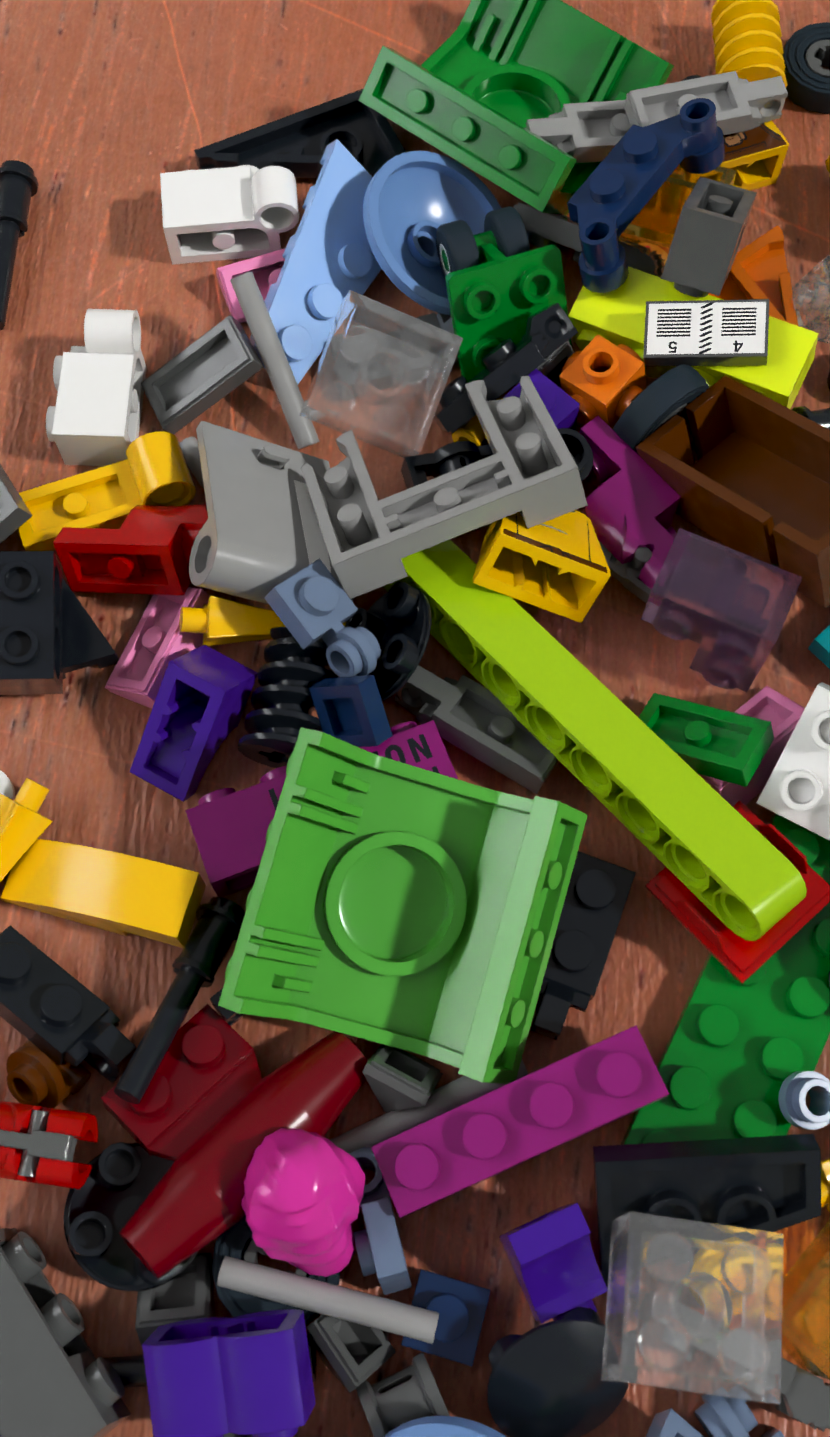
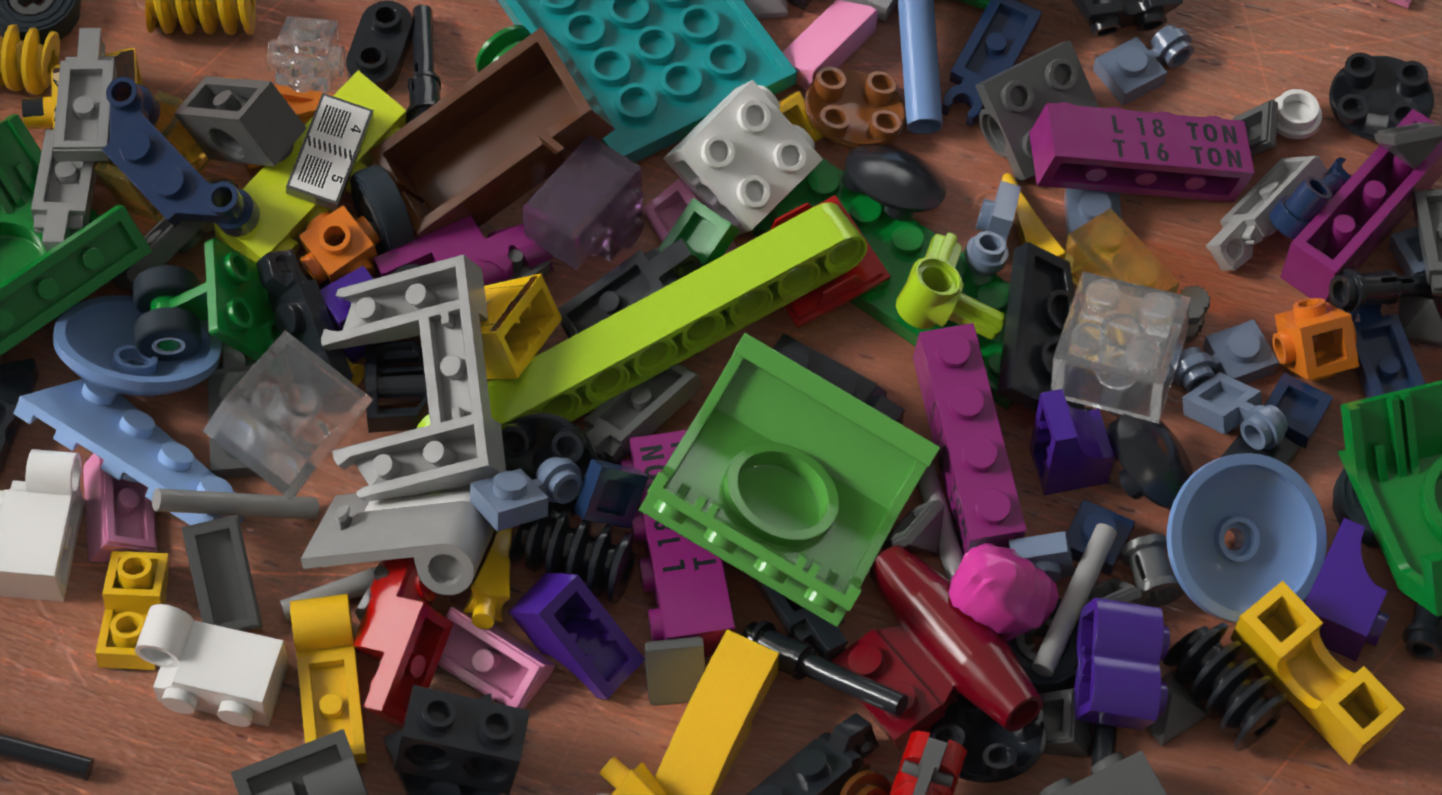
camera: 80 degrees left, 10 degrees down
(169, 832) = (673, 669): none -> dark grey slope
(176, 316) = (130, 589): none -> yellow slope
(638, 682) = (627, 284): none -> black hinge
(743, 1042) = (935, 293): none -> lime axle

